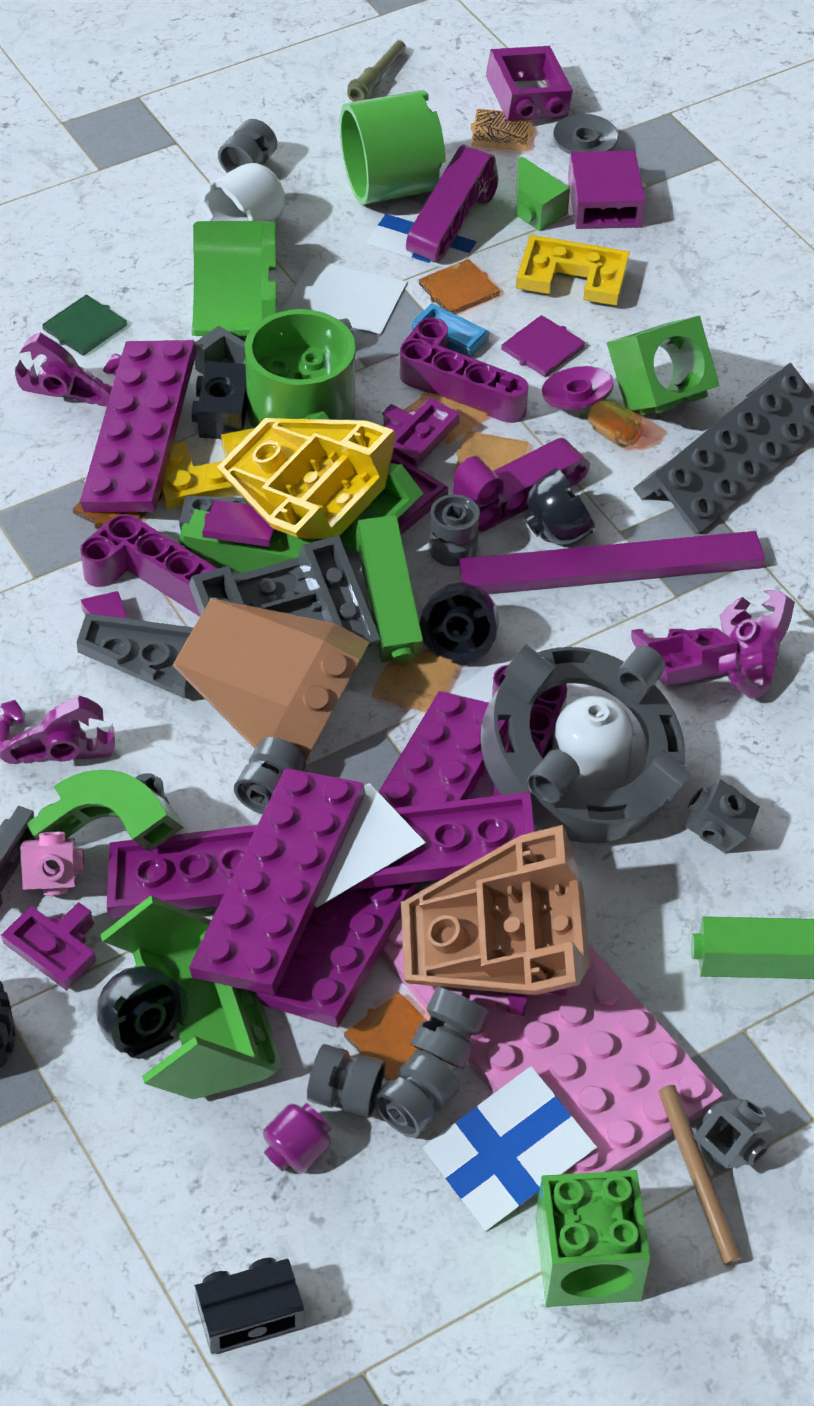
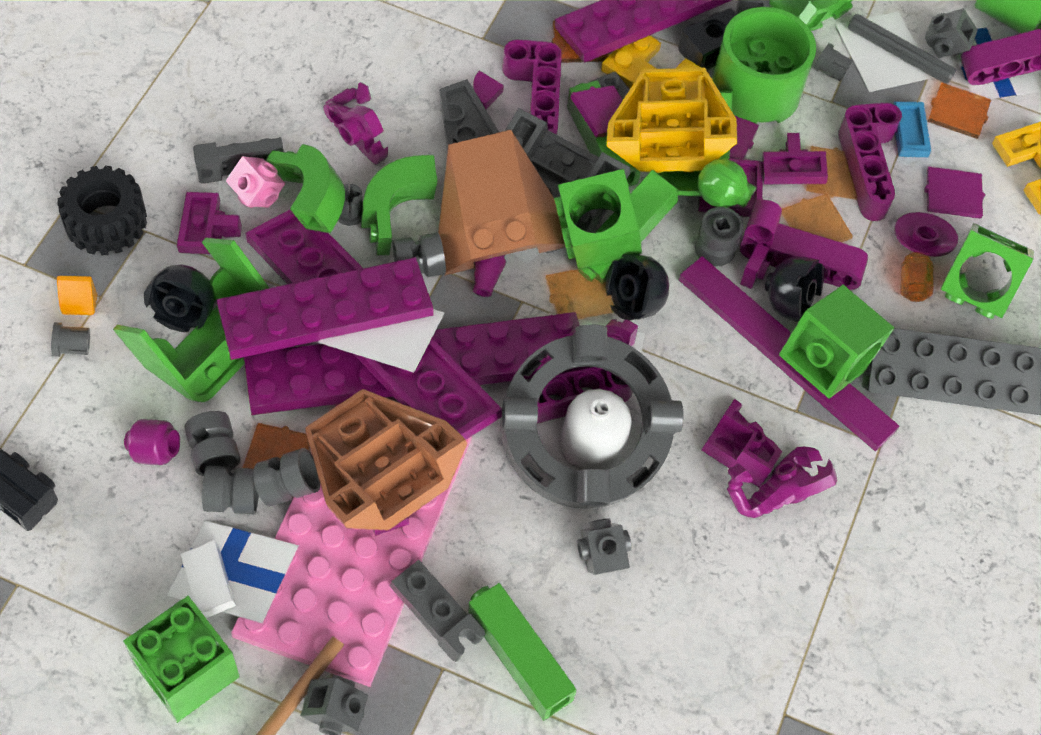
camera: 50 degrees right, 10 degrees up
(41, 1114) = (76, 295): none -> light orange slope
(96, 1152) = (69, 340): none -> dark grey bush
(166, 731) = (395, 183): none -> bright green arch
(338, 738) = (487, 274): none -> magenta cone
(358, 280) = (902, 48): none -> dark grey axle
(380, 235) = (951, 33): none -> dark grey brick
(389, 559) = (596, 192): none -> bright green brick
(415, 481) = (724, 184): none -> bright green piece
(483, 673) = (626, 329): none -> magenta tile
(502, 1172) = (208, 579): none -> white tile
(506, 526) = (756, 266): none -> magenta plate
(650, 509) = (836, 341): none -> bright green brick
(689, 990) = (437, 610): none -> dark grey plate

